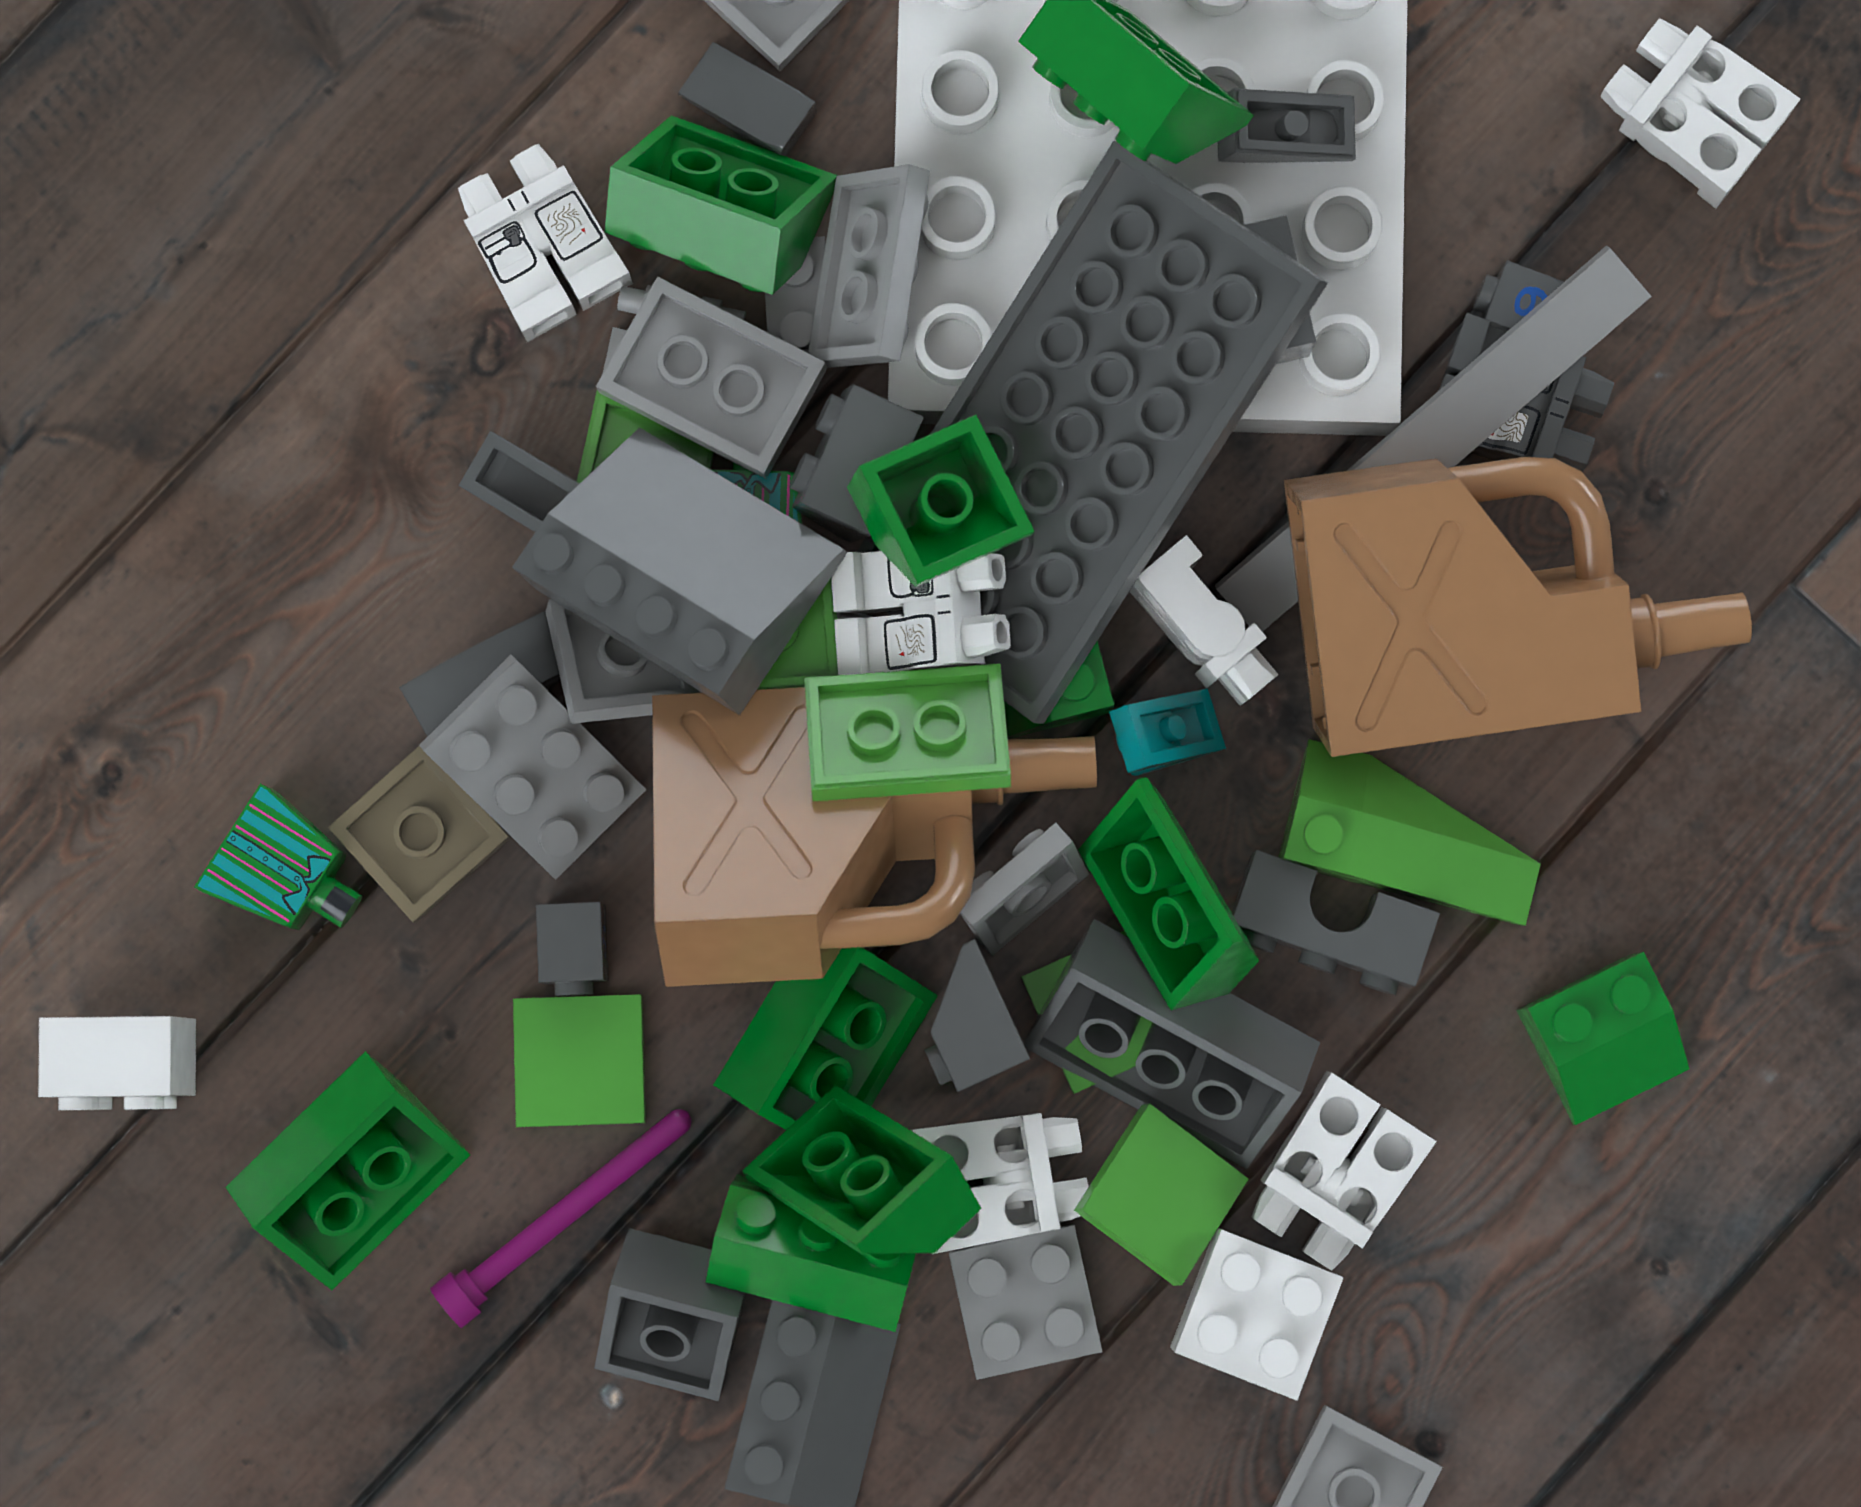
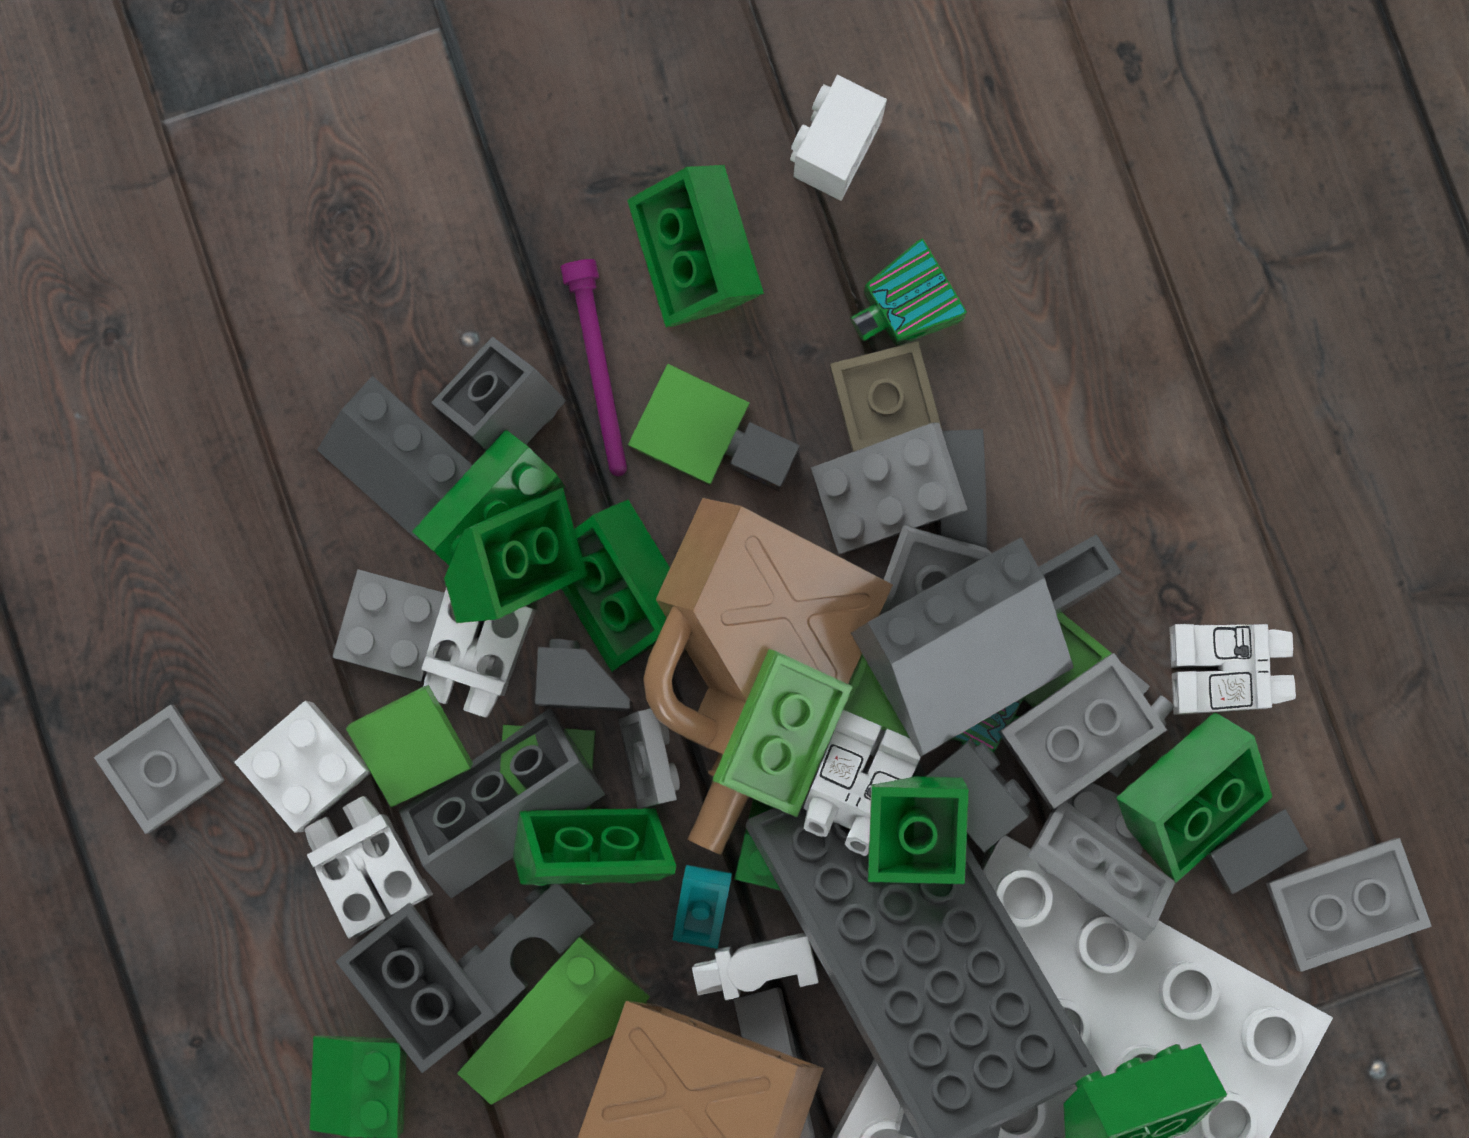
camera: 115 degrees right, 0 degrees up
(1451, 1025) = (416, 987): none -> dark grey slope

